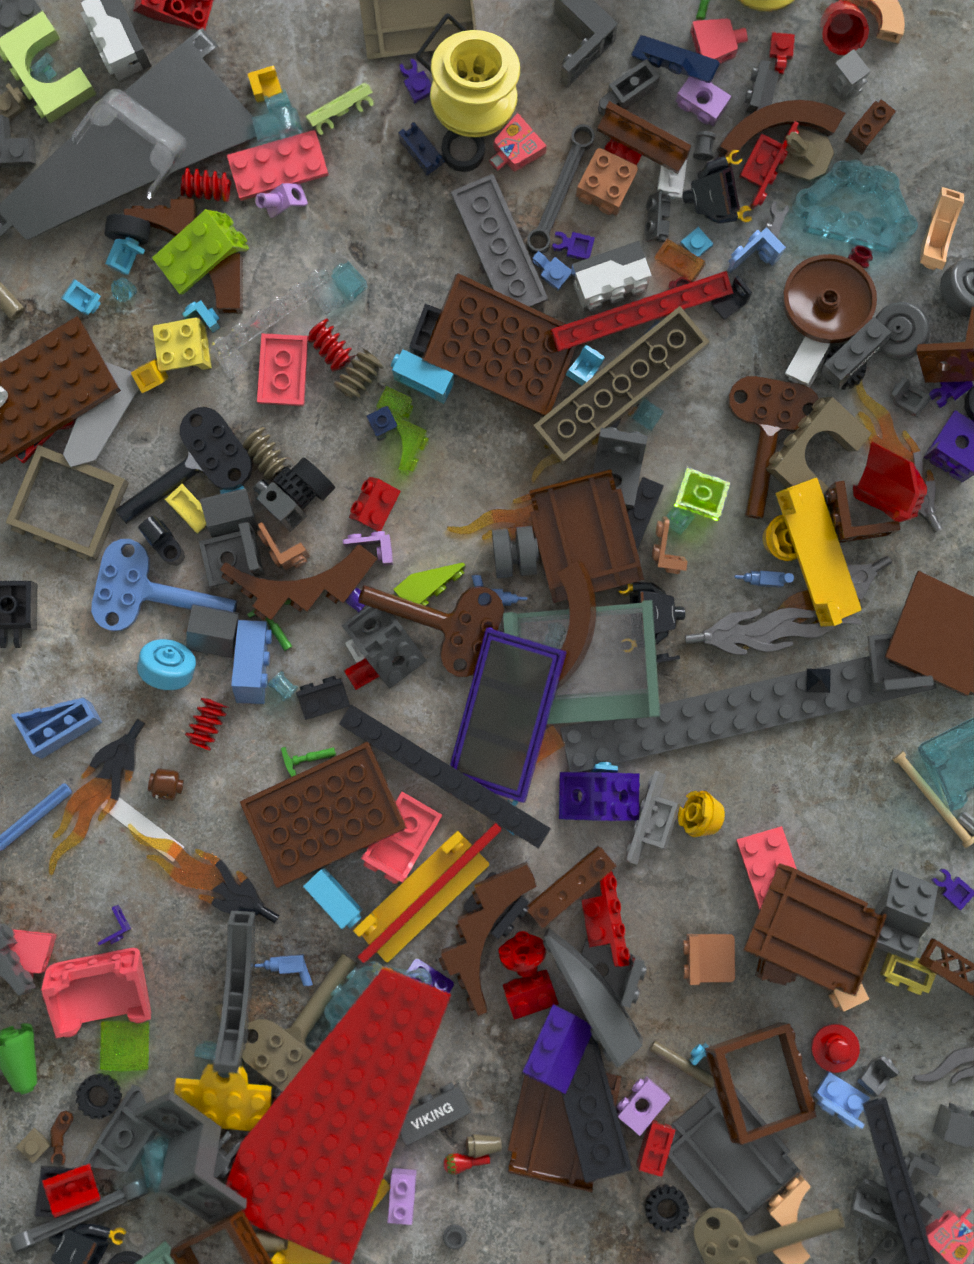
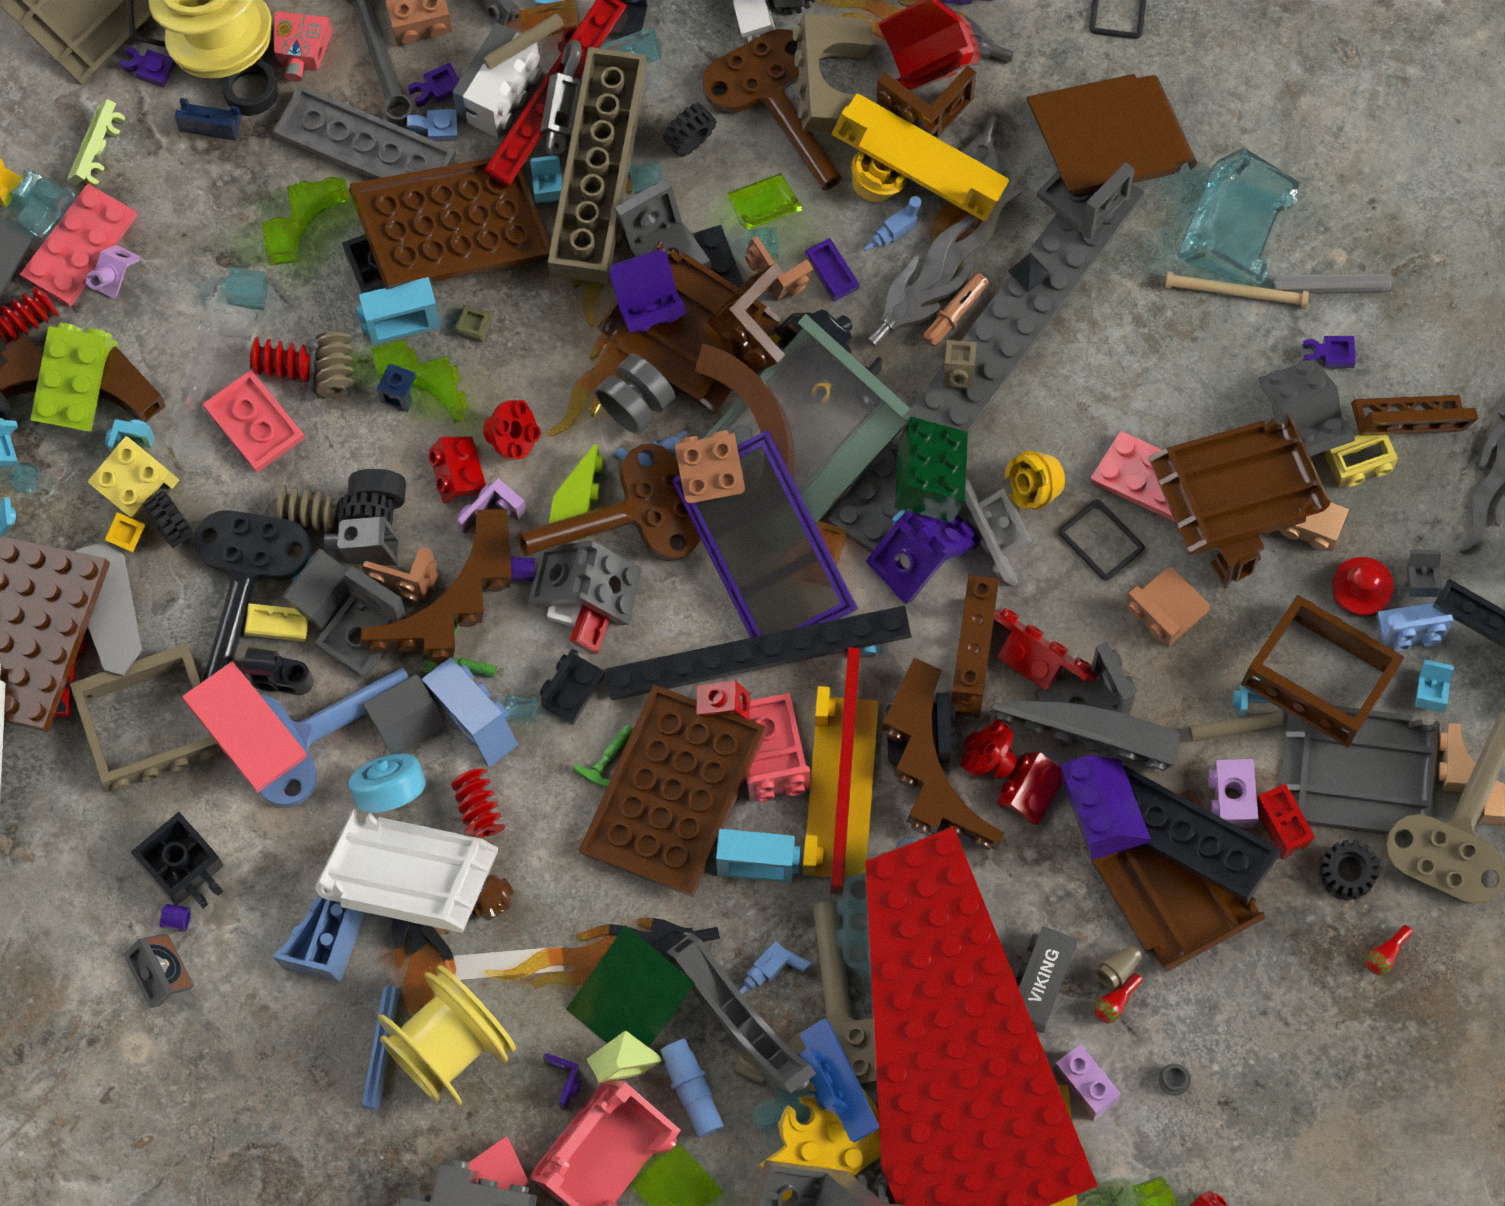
camera: 40 degrees left, 15 degrees down
(60, 852) = (445, 1036): none -> light yellow wheel
(111, 561) = (244, 727): none -> coral piece
(127, 732) = (407, 872): none -> white piece
(152, 948) = (622, 1059): none -> yellowish green slope
(178, 390) = (168, 519): none -> black tyre
(180, 998) = (691, 1087): none -> medium blue piece
(191, 916) = (630, 991): none -> dark green sticker
(255, 1074) = (836, 1082): none -> blue bracket
(330, 380) = (311, 394): none -> dark grey hinge
(396, 789) = (723, 698): none -> bracket
(424, 510) = (512, 429): none -> red plate
(431, 254) = (306, 201): none -> clear neon green arch
(464, 419) = (473, 323): none -> olive tile
(513, 641) = (709, 467): none -> nougat bracket
(572, 498) = (646, 291): none -> dark purple bracket
(614, 556) = (740, 331): none -> reddish brown bracket
(638, 323) = (562, 97): none -> dark grey piece
(641, 759) = (931, 469): none -> dark green brick
(642, 268) = (523, 41): none -> dark tan piece
(690, 881) = (1084, 556): none -> black piece
(698, 409) = (689, 129): none -> black tyre
(704, 571) = (832, 269): none -> dark purple tile
(712, 325) = (641, 42): none -> clear light blue slope
(723, 702) = (959, 364): none -> dark tan bracket
(748, 664) = (953, 312): none -> nougat axle
(817, 1147) = (1433, 686): none -> medium azure bracket

